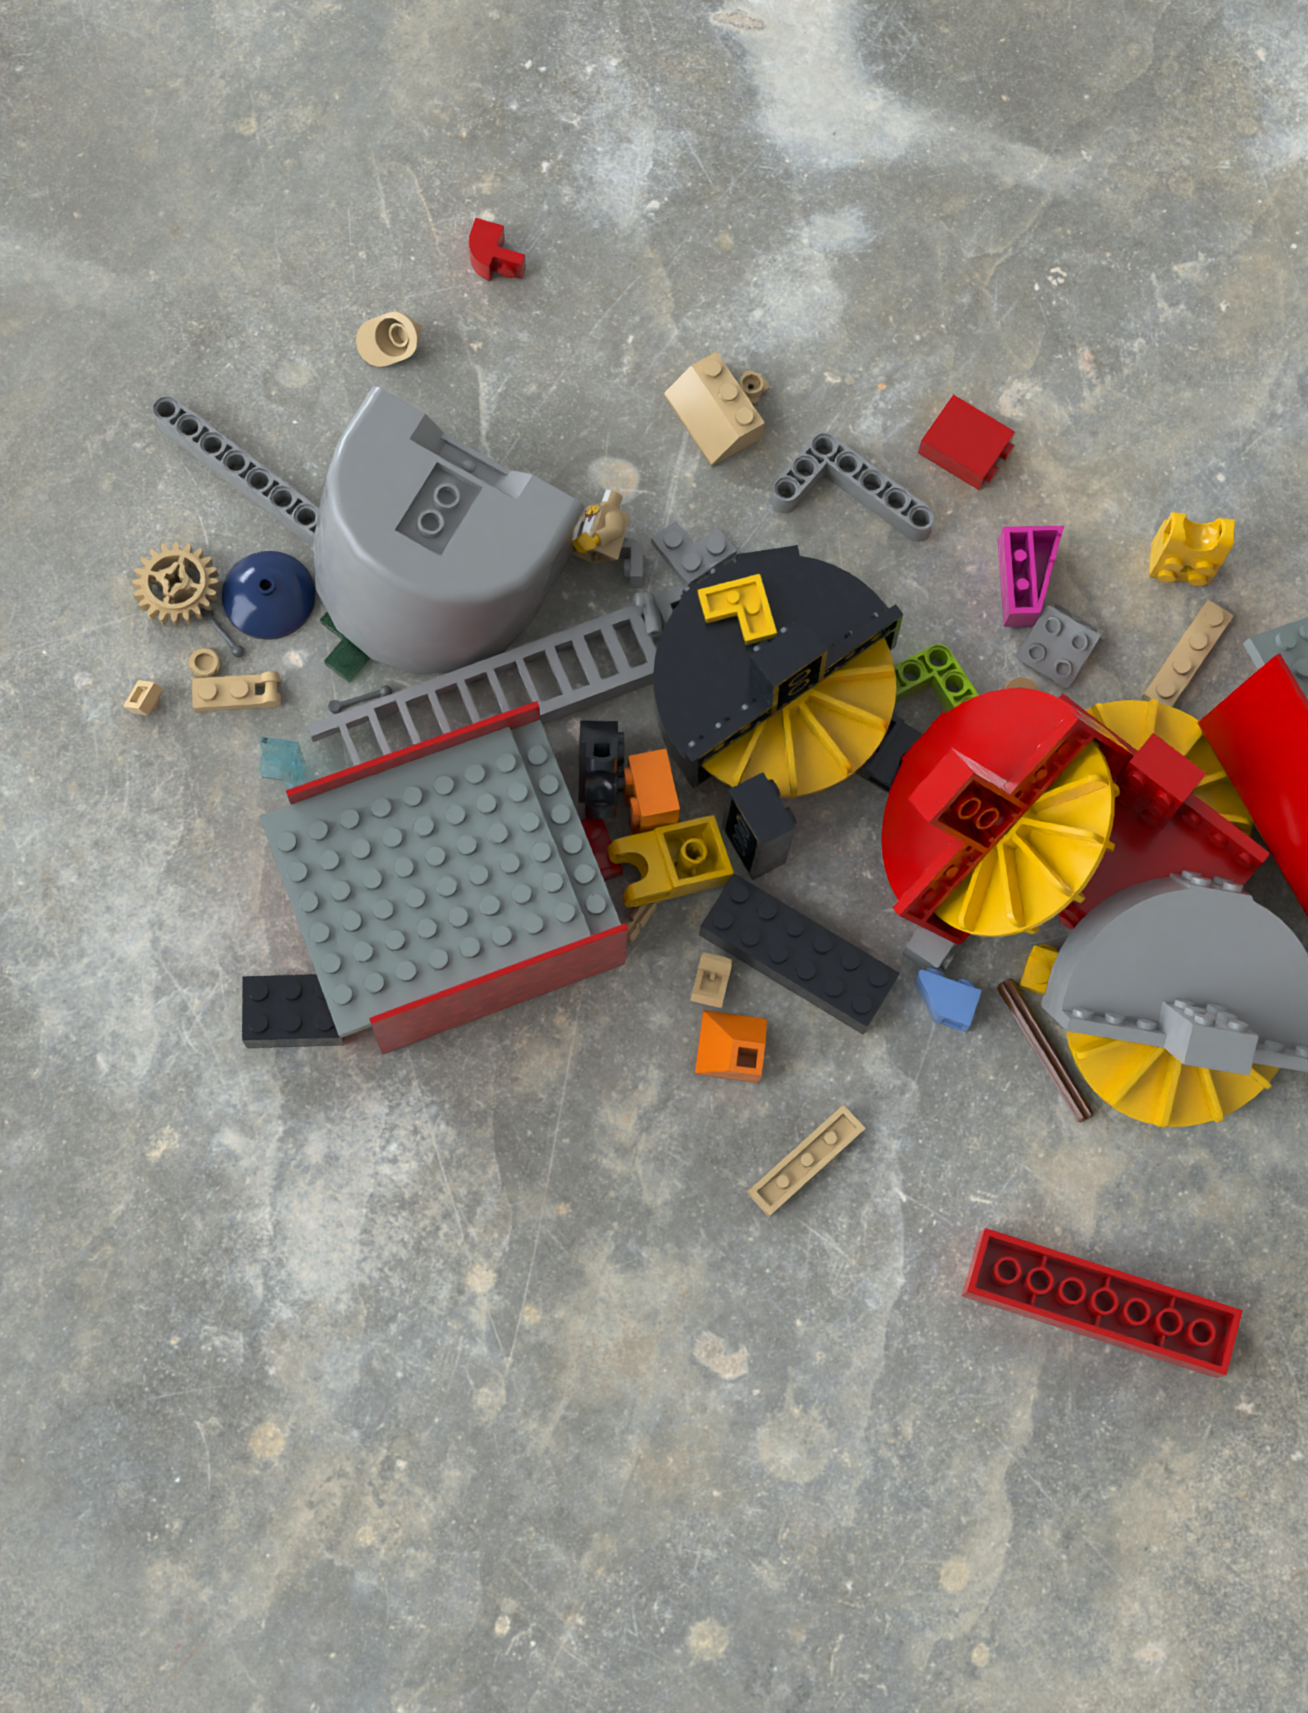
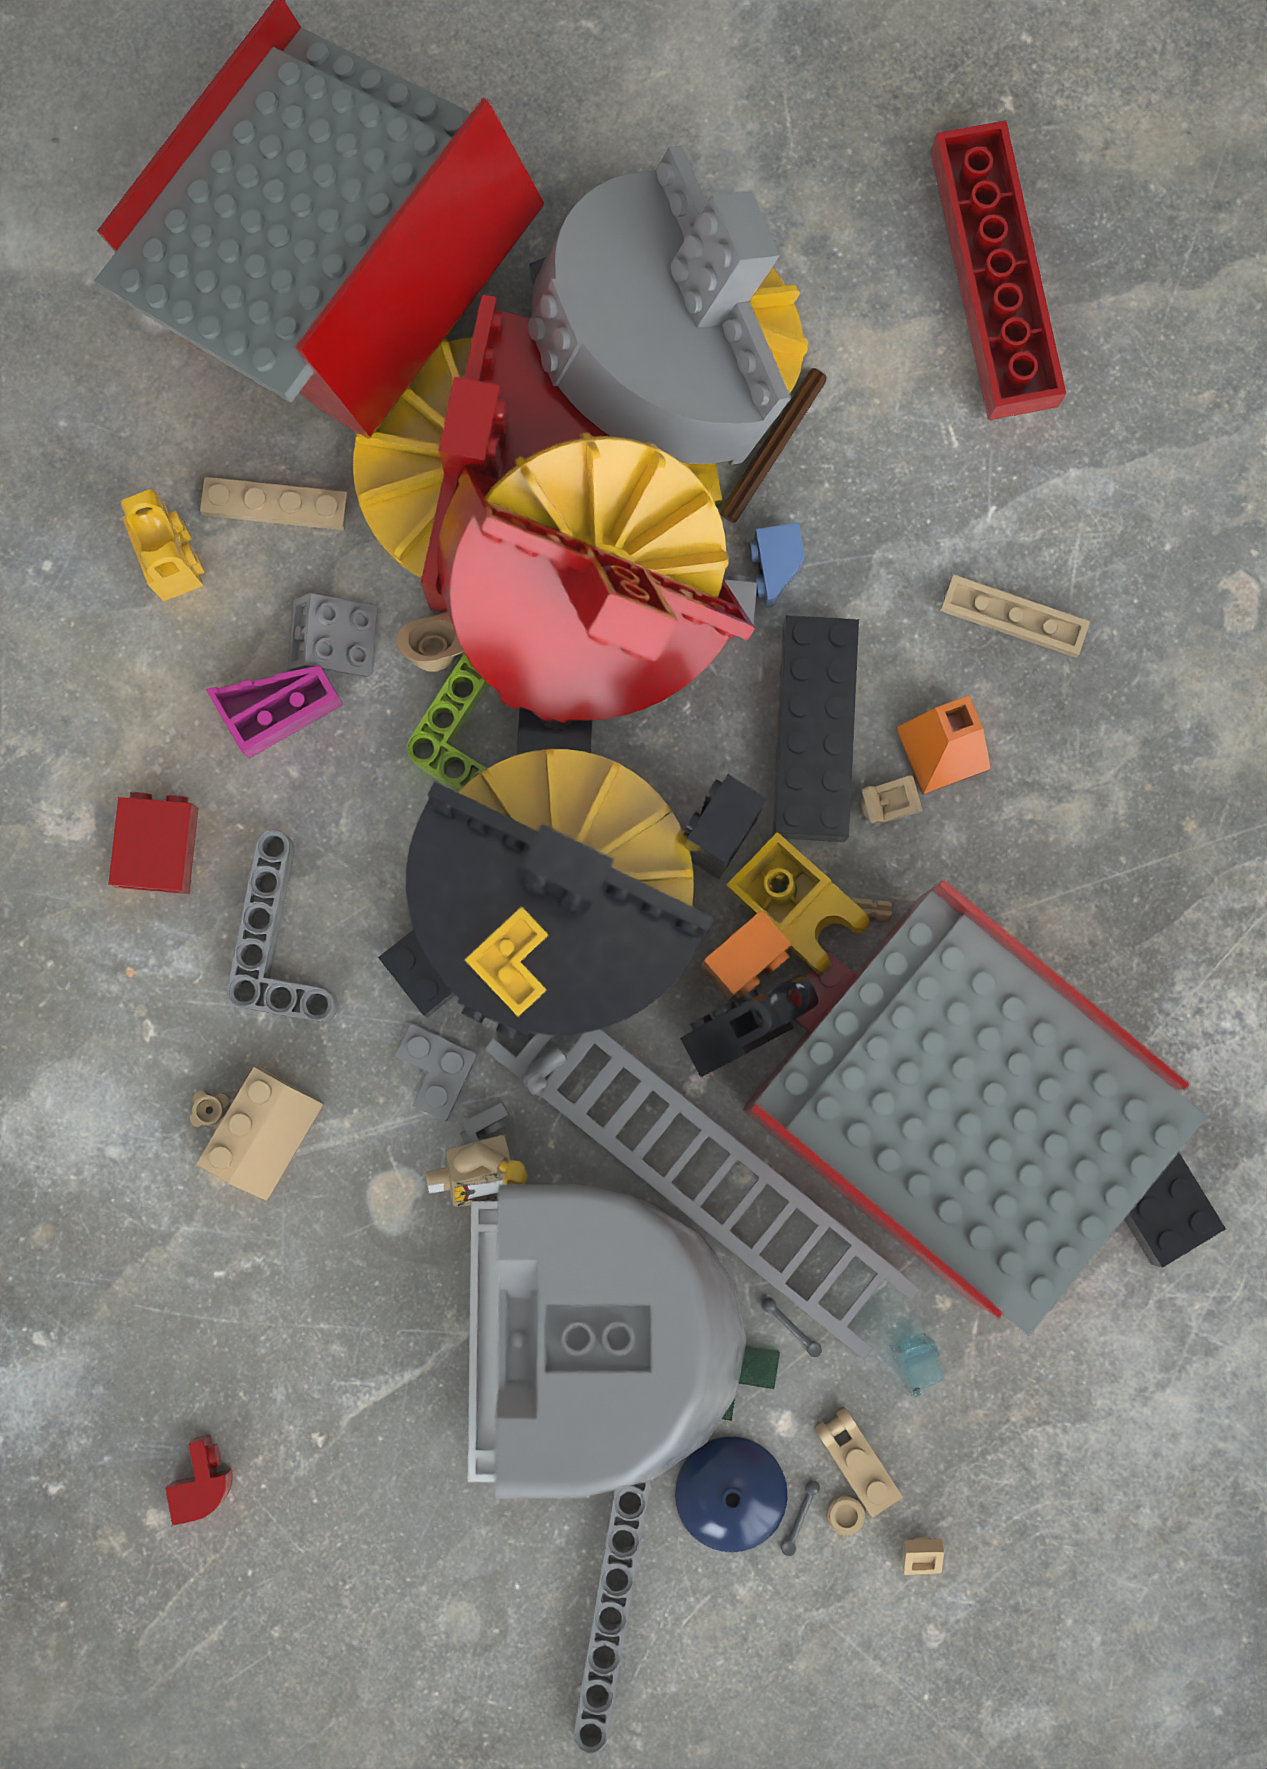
camera: 115 degrees left, 10 degrees up
(172, 605) = (766, 1604): tan gear -> none
(388, 339) = (369, 1537): tan piece -> none

